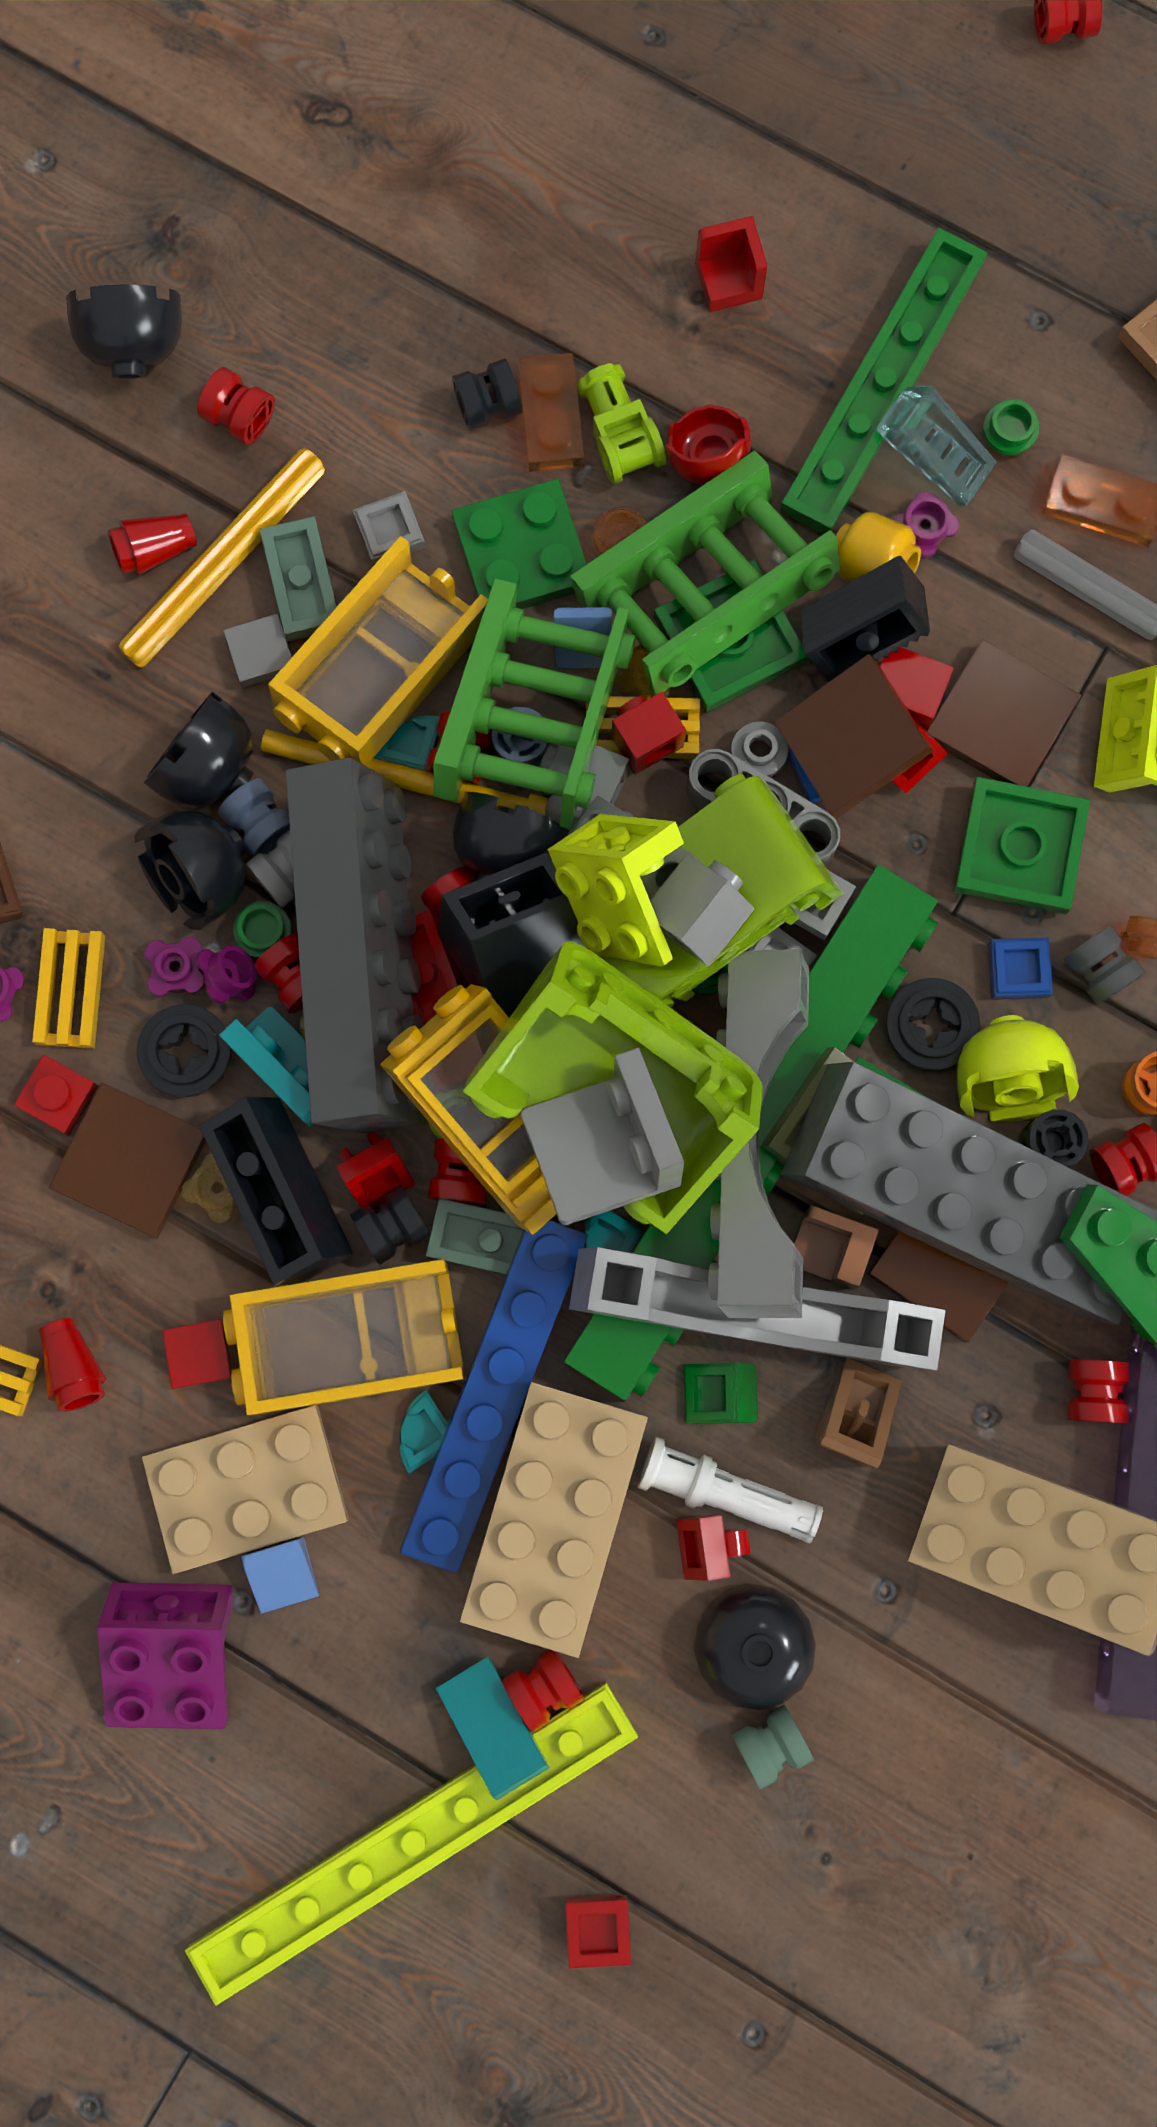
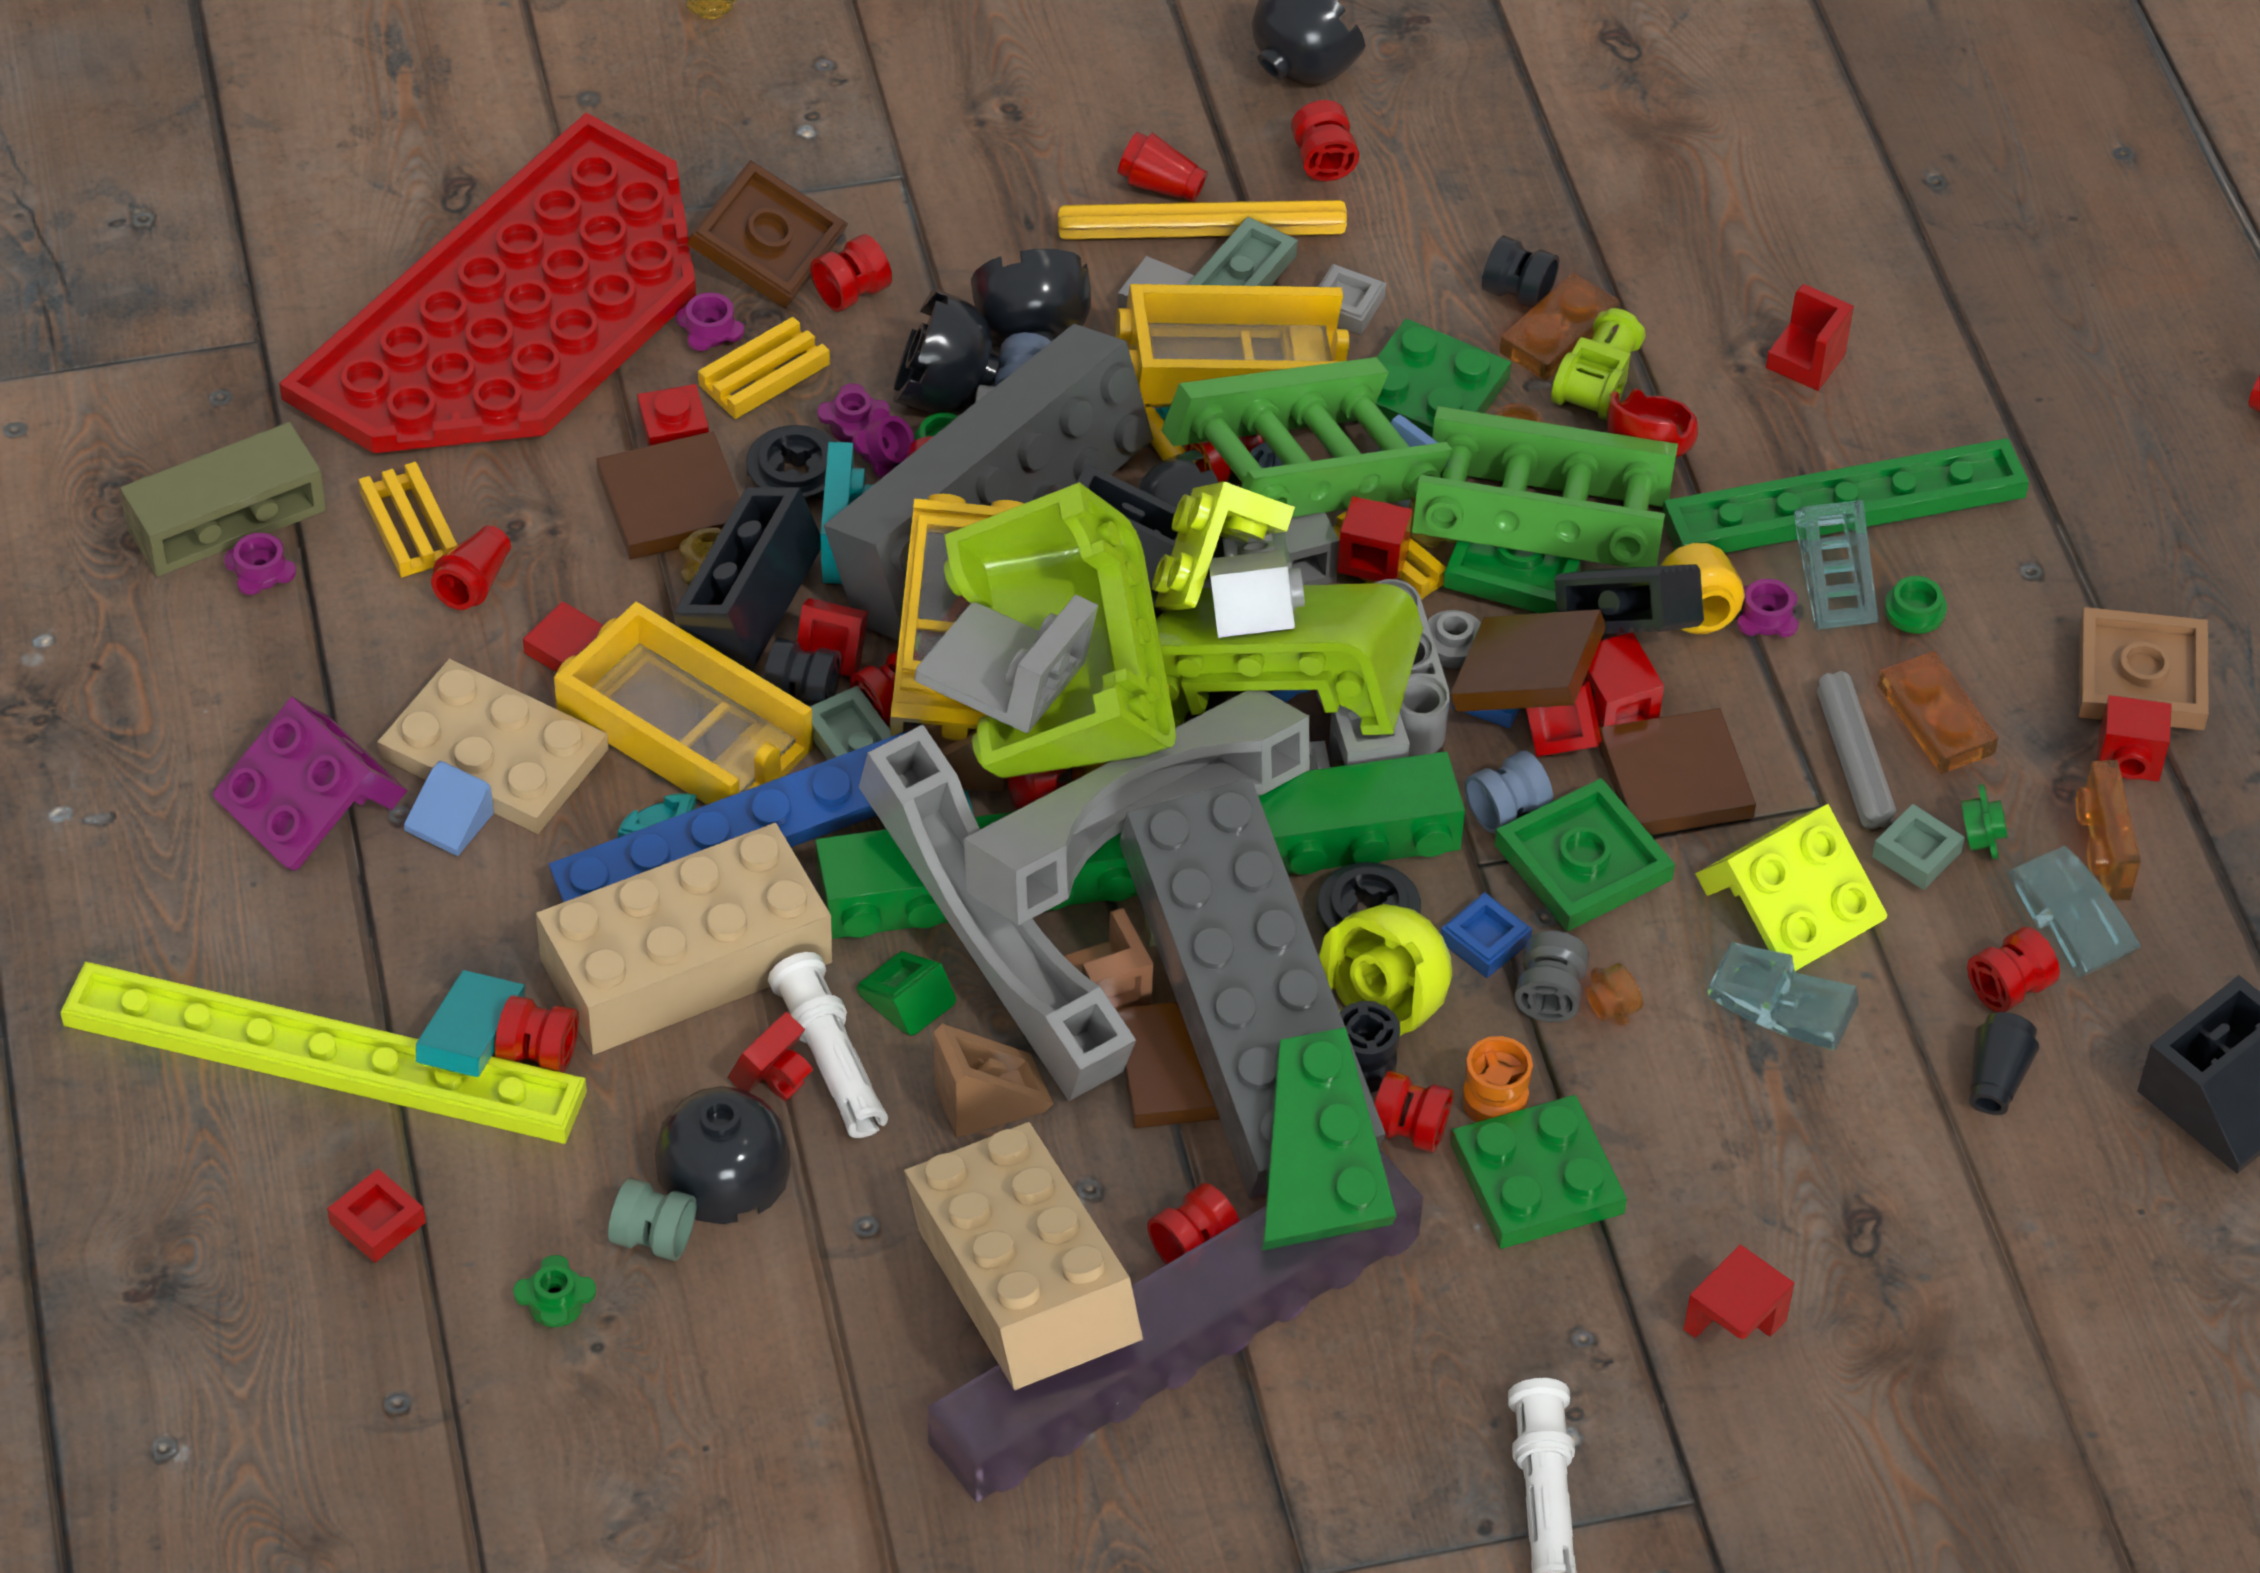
camera: 45 degrees right, 30 degrees down
(43, 851) = (854, 271): none -> red wheel
(777, 1844) = (560, 1307): none -> green plate
(929, 845) = (1510, 791): none -> sand blue wheel

